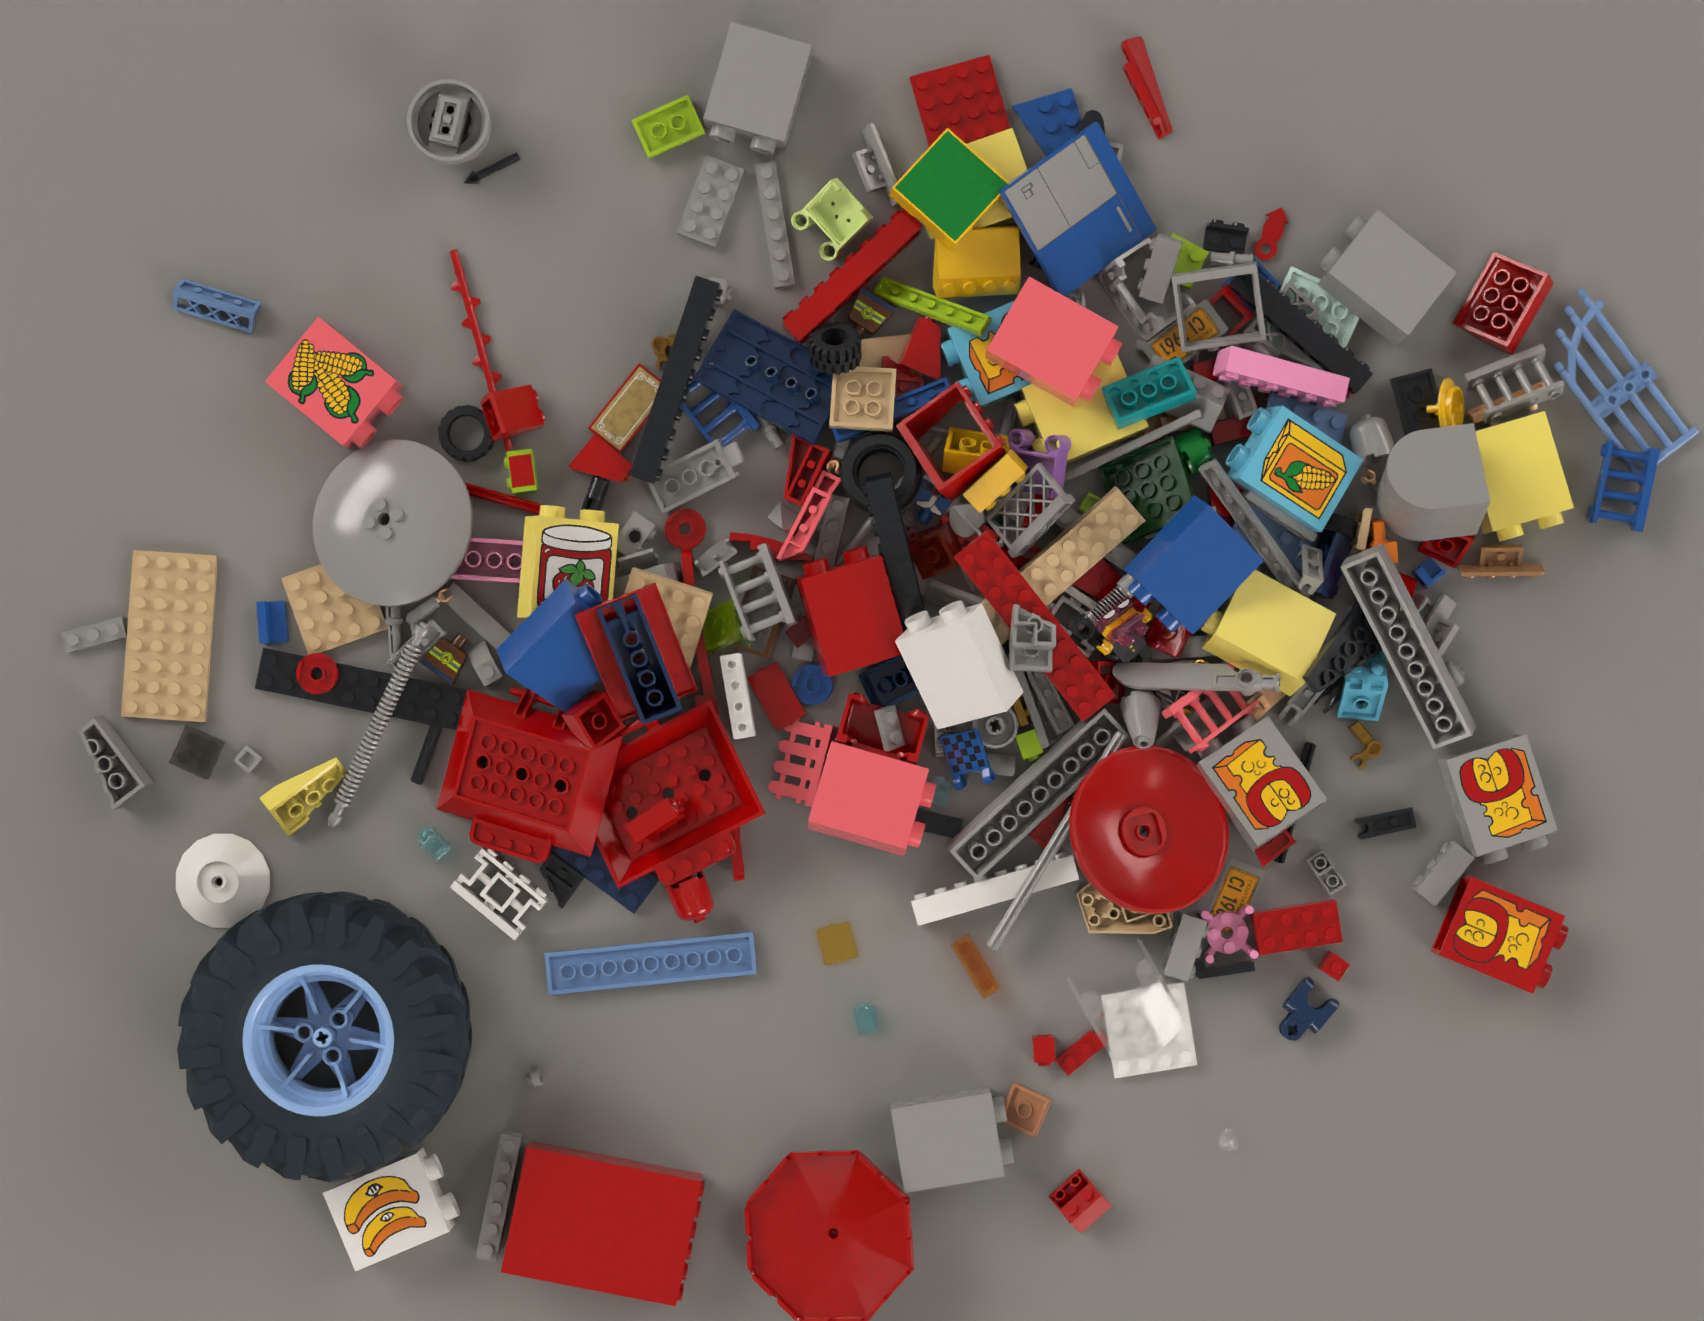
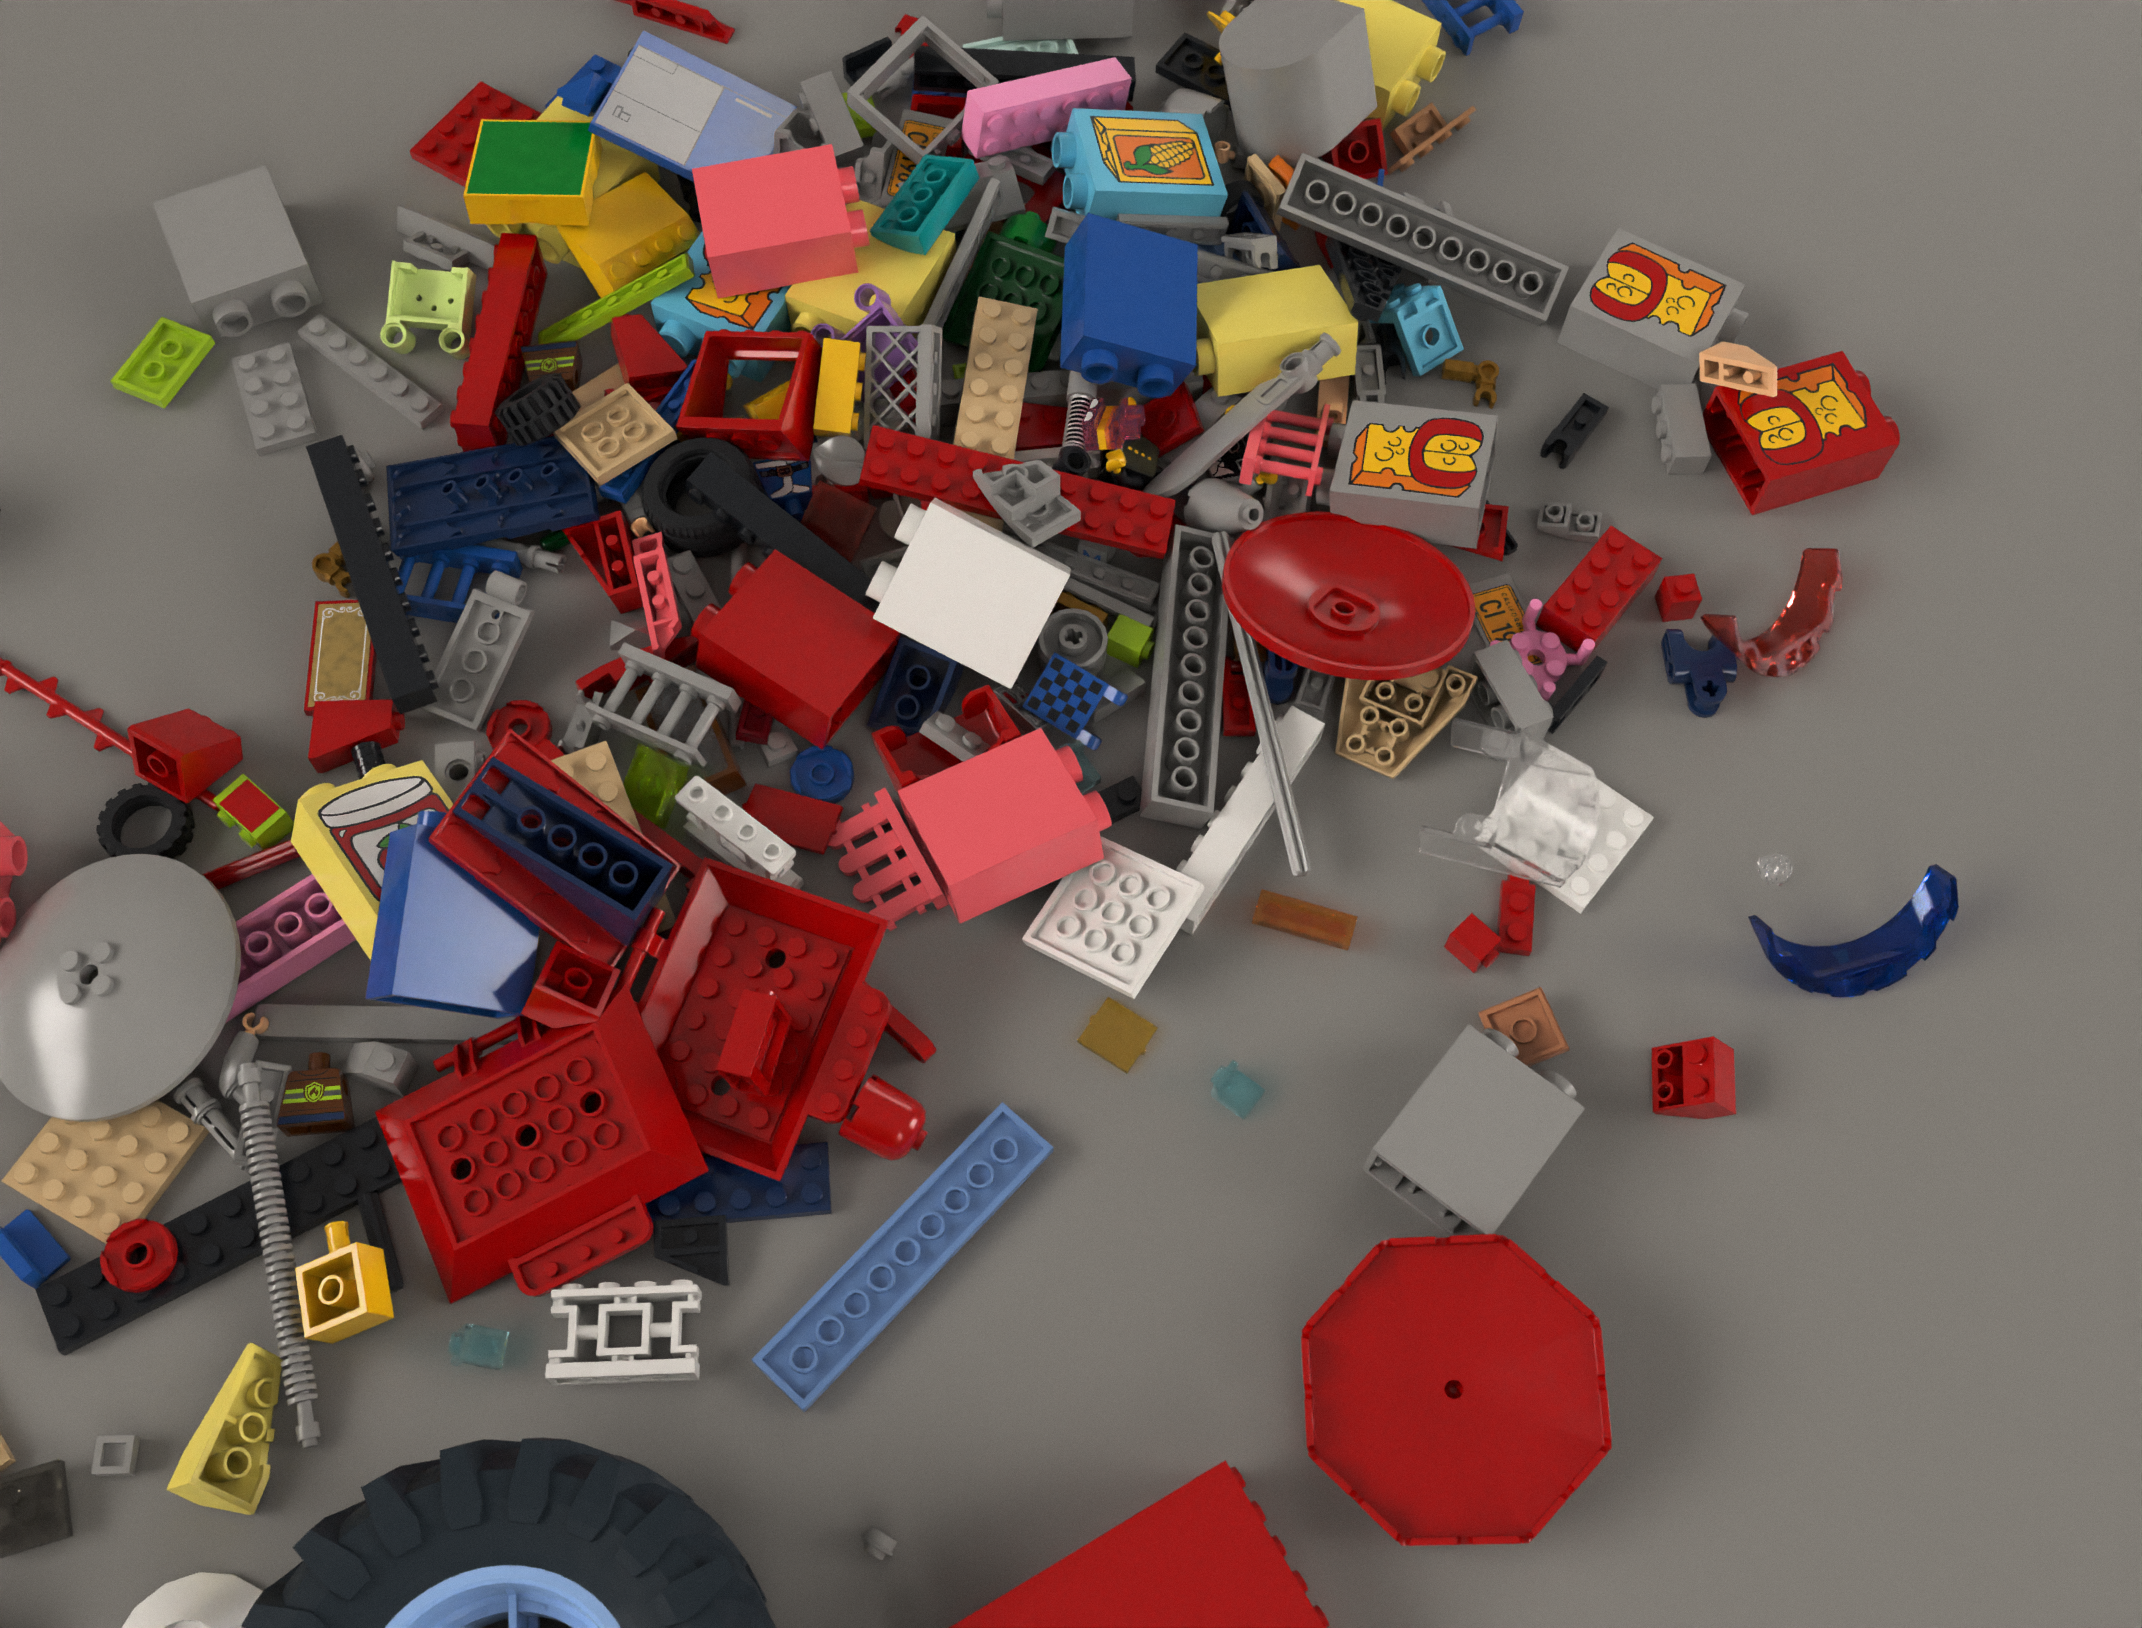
camera: 45 degrees left, 25 degrees down
(393, 768) = (343, 1289): none -> yellow brick
(882, 890) = (1114, 917): none -> white plate
(1023, 155) = (585, 94): none -> blue wedge
(1223, 1220) = (1875, 958): none -> clear blue windscreen
(1371, 1036) = (1797, 631): none -> clear red windscreen
(1489, 877) = (1738, 368): none -> light nougat slope

